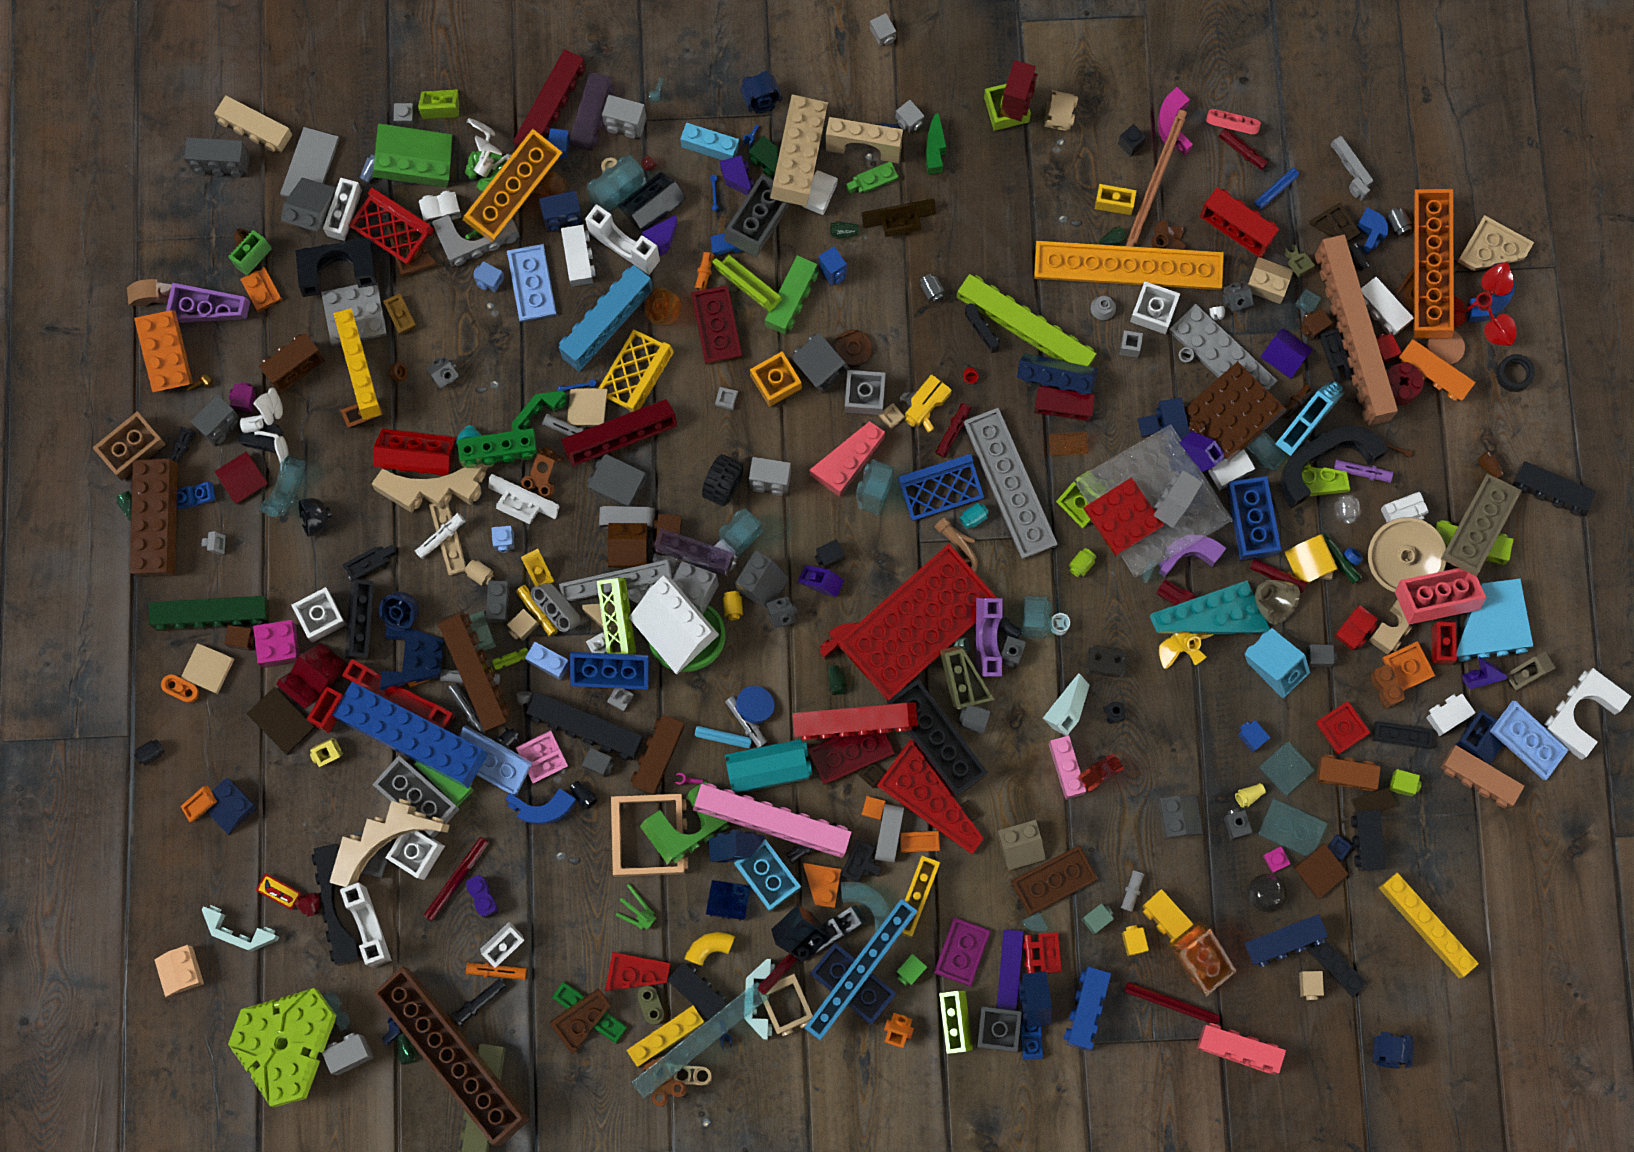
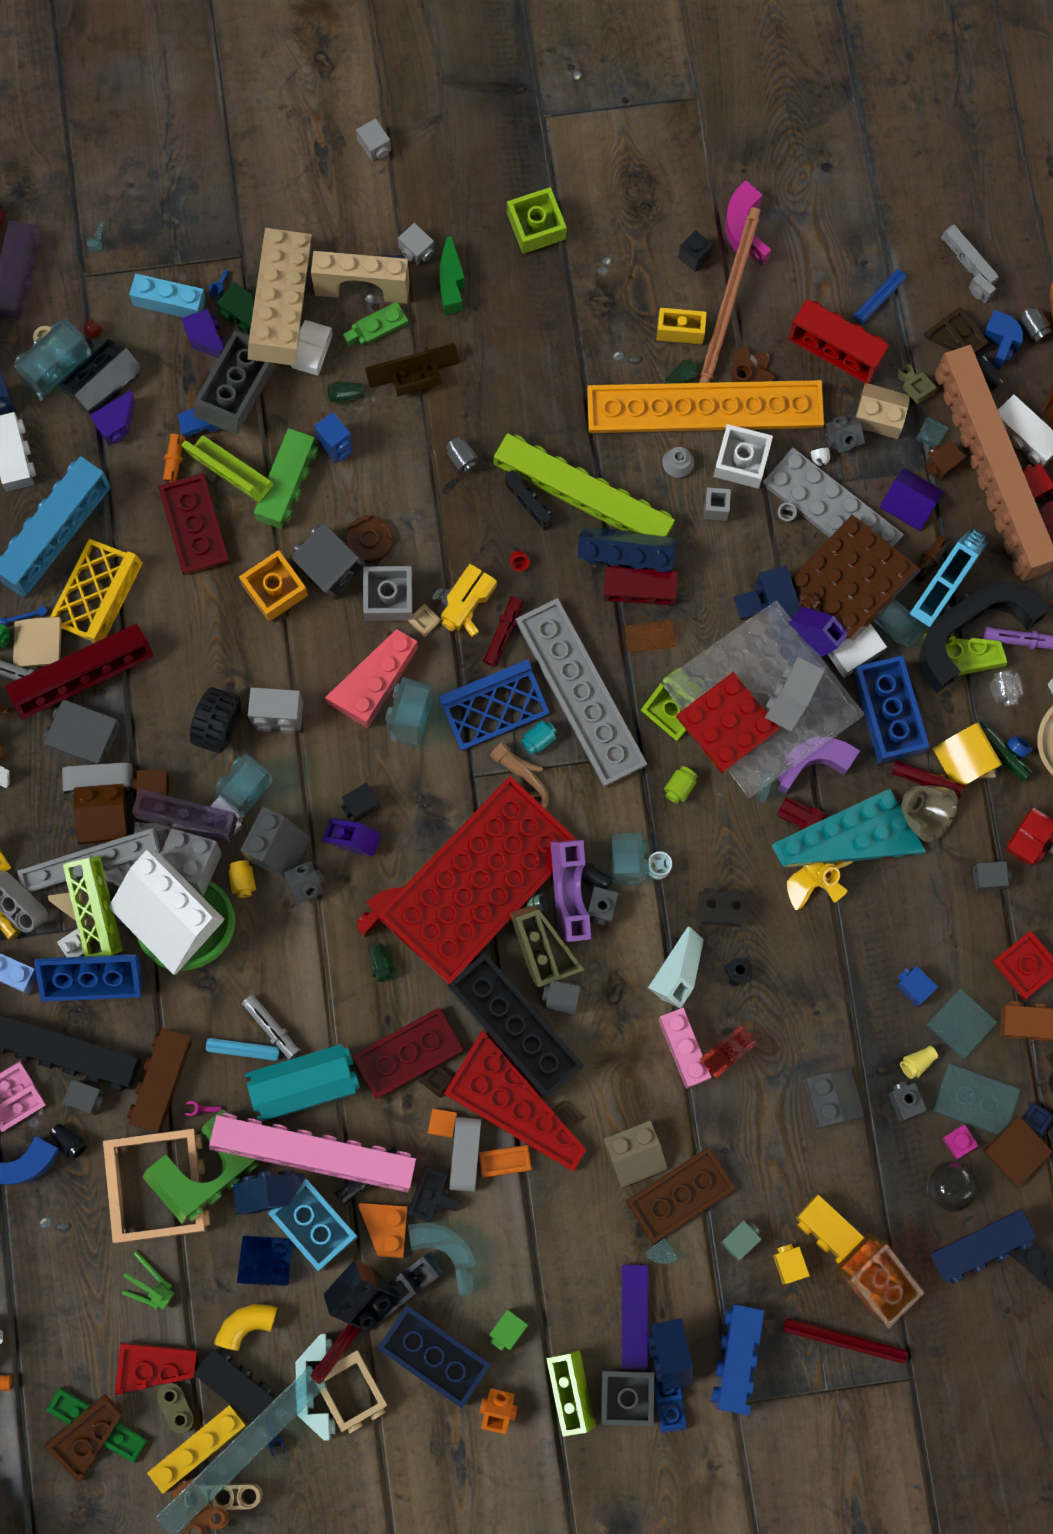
camera: 10 degrees left, 0 degrees up
(620, 698) = (107, 1011): light grey tile -> none
(624, 117) = (56, 273): light grey brick -> none
(642, 253) = (88, 441): white arch -> none
(663, 307) = (123, 507): clear orange cylinder -> none
(713, 178) = (176, 341): blue hinge -> none
(726, 398) = (213, 616): light grey tile -> none
(755, 704) = (280, 1003): blue tile -> none
(760, 92) = (226, 229): dark blue brick -> none
(860, 719) = (408, 1013): red brick -> none
(860, 970) = (441, 1341): dark azure brick -> none
(919, 890) = (506, 1234): yellow brick -> none
(962, 952) = (571, 1299): magenta tile -> none
(1019, 91) = (548, 198): dark red brick -> none
(1048, 950) = (682, 1291): red plate -> none
(1059, 110) = (603, 221): tan brick -> none
(1132, 891) = (781, 1199): light grey pin -> none
(1233, 121) = (818, 218): coral beam -> none
(1239, 146) = (841, 256): dark red pin -> none
(1241, 1049) = (939, 1393): coral wedge -> none
(1278, 662) = (938, 889): medium azure slope -> none
(1311, 984) = (1020, 1300): tan brick -> none
(1335, 354) = (972, 495): black hinge -> none

